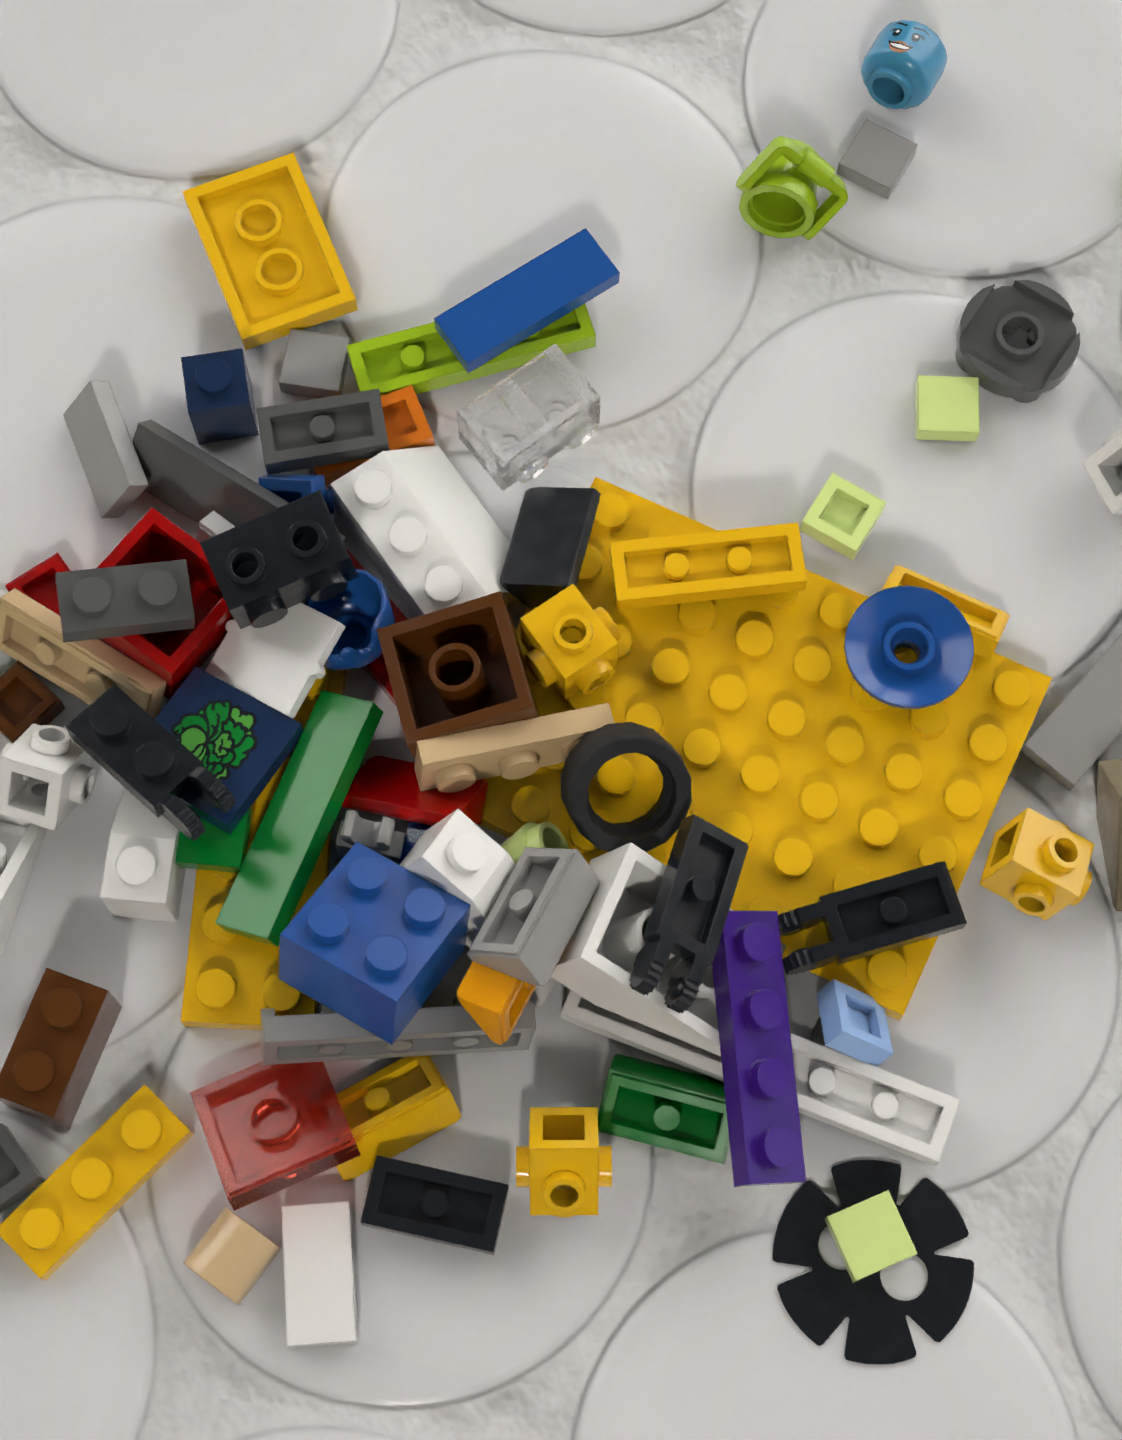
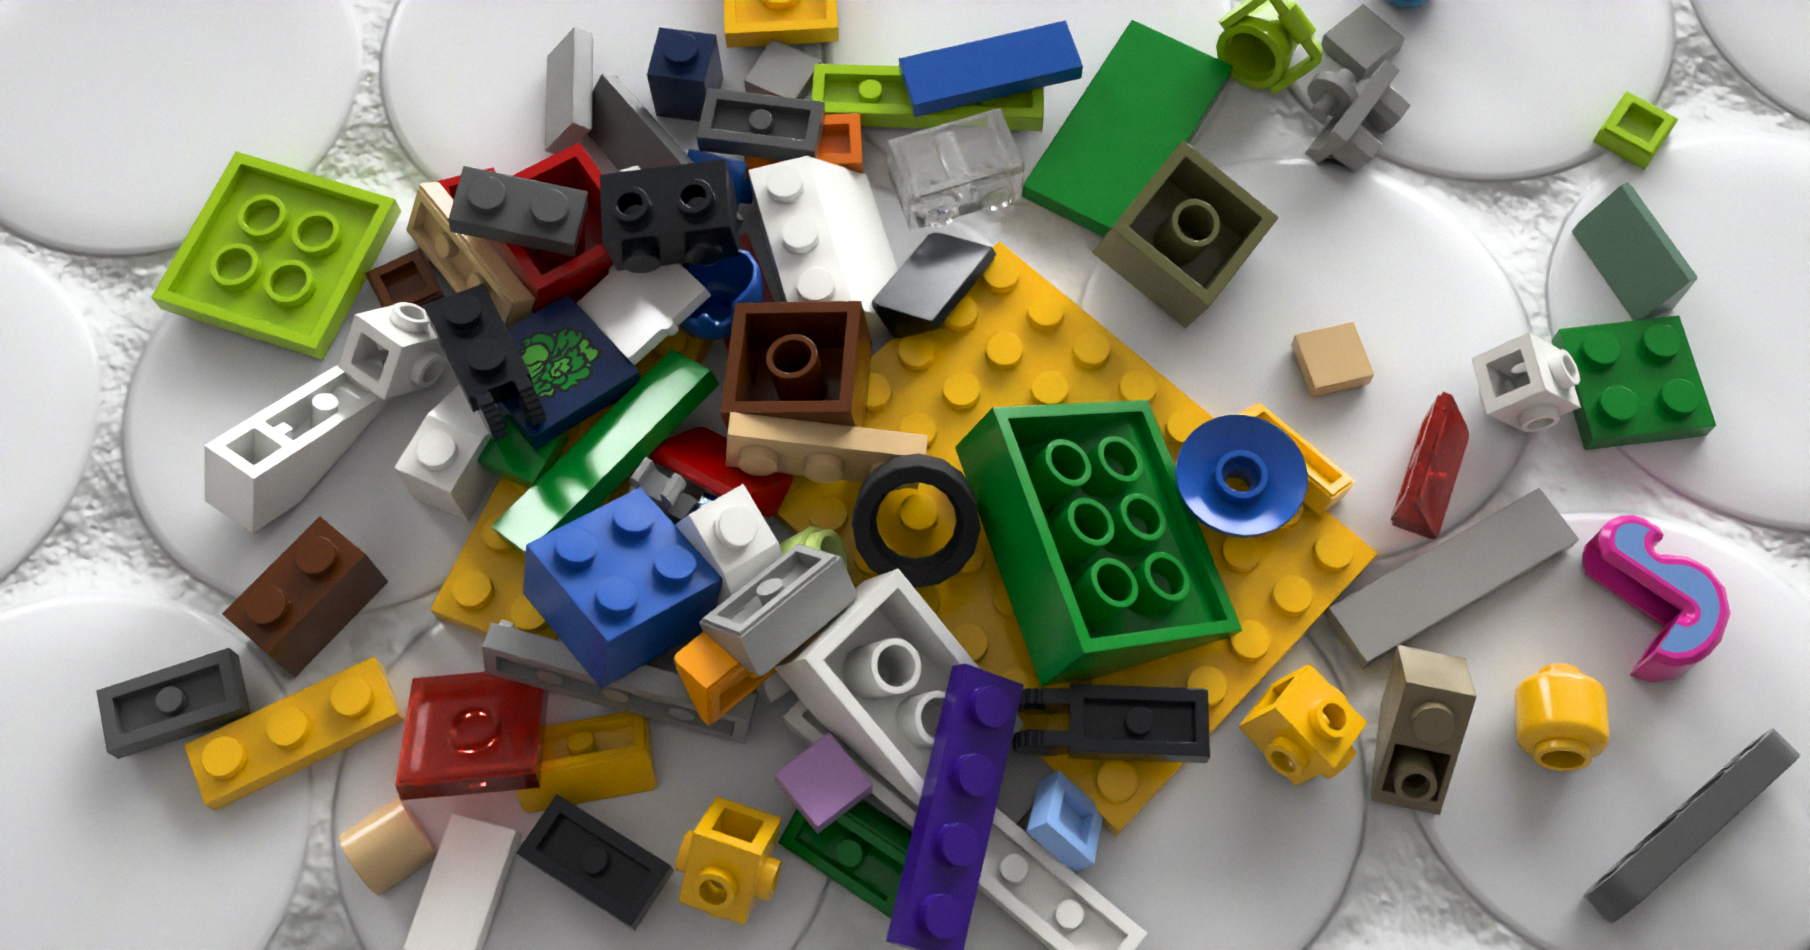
camera: 20 degrees right, 5 degrees down
(570, 643) = (914, 372): yellow brick -> none
(624, 1062) = (823, 782): none -> lavender tile
(679, 322) = (1125, 127): none -> green tile
(689, 910) = (933, 651): black hinge -> none
(707, 566) = (1072, 344): yellow plate -> none
(777, 420) = (1185, 235): none -> olive brick
(791, 749) = (1093, 537): none -> green slope
(842, 516) = (1221, 343): yellowish green plate -> none
(884, 236) = (1349, 106): none -> light grey hips
(947, 408) = (1356, 277): yellowish green tile -> none
(950, 499) = (1332, 359): none -> tan tile
(1012, 371) = (1441, 264): dark grey plate -> none
(1075, 580) = (1432, 469): none -> clear red slope

